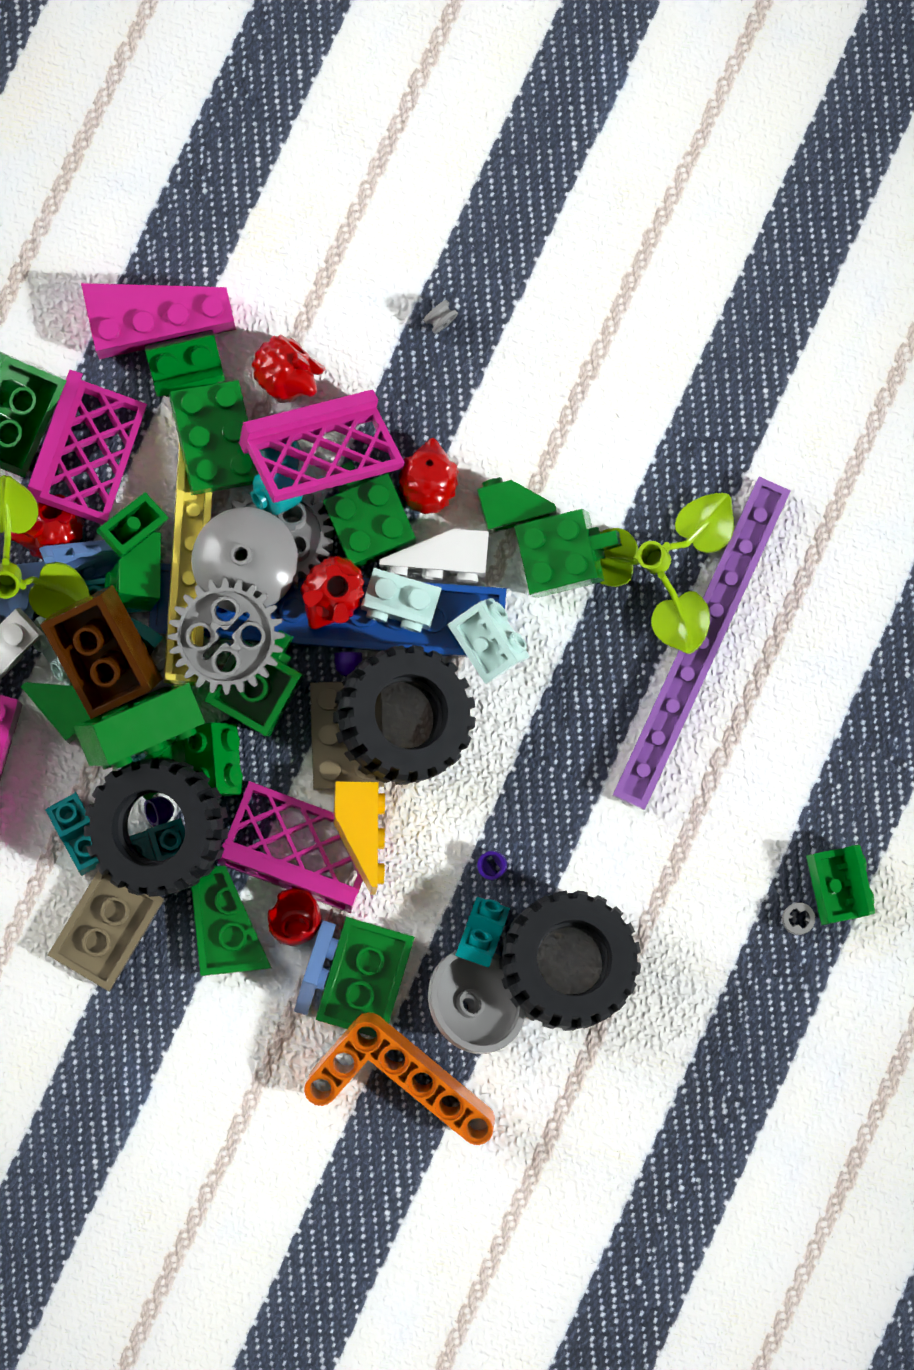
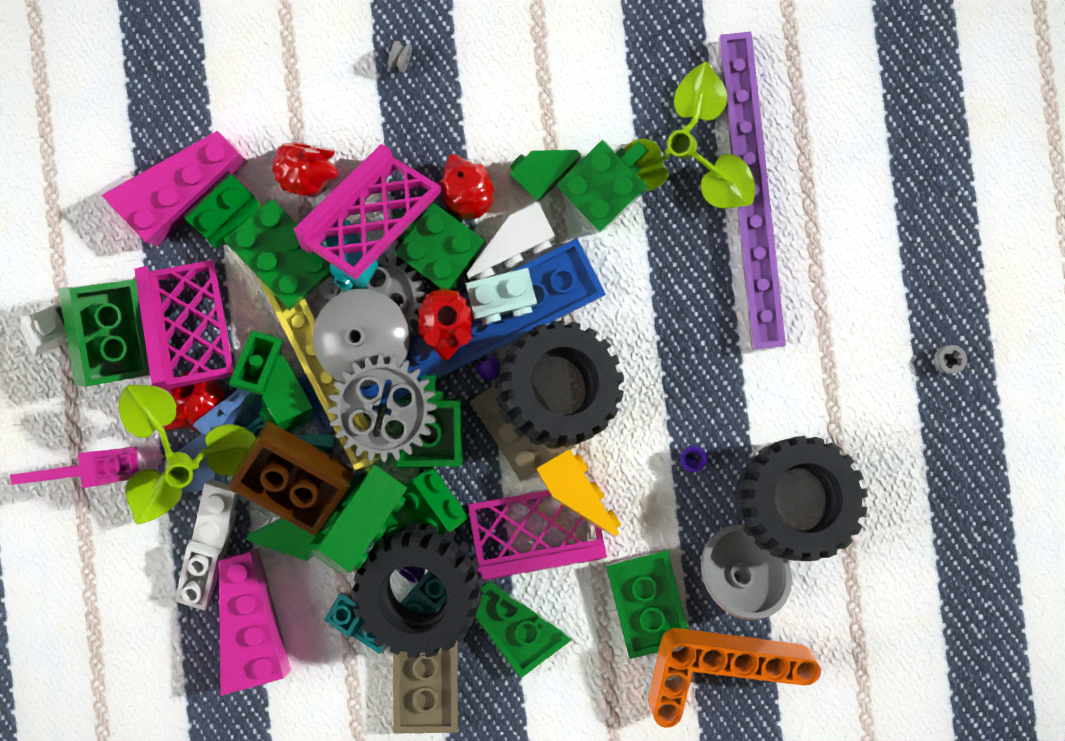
camera: 25 degrees left, 5 degrees up
(294, 917) = (566, 591): red hair -> none
(315, 973) = (610, 627): medium blue wing -> none
(482, 931) = (718, 515): teal slope -> none
(489, 639) = (589, 286): light aqua bracket -> none
(841, 884) = (970, 313): green bracket -> none

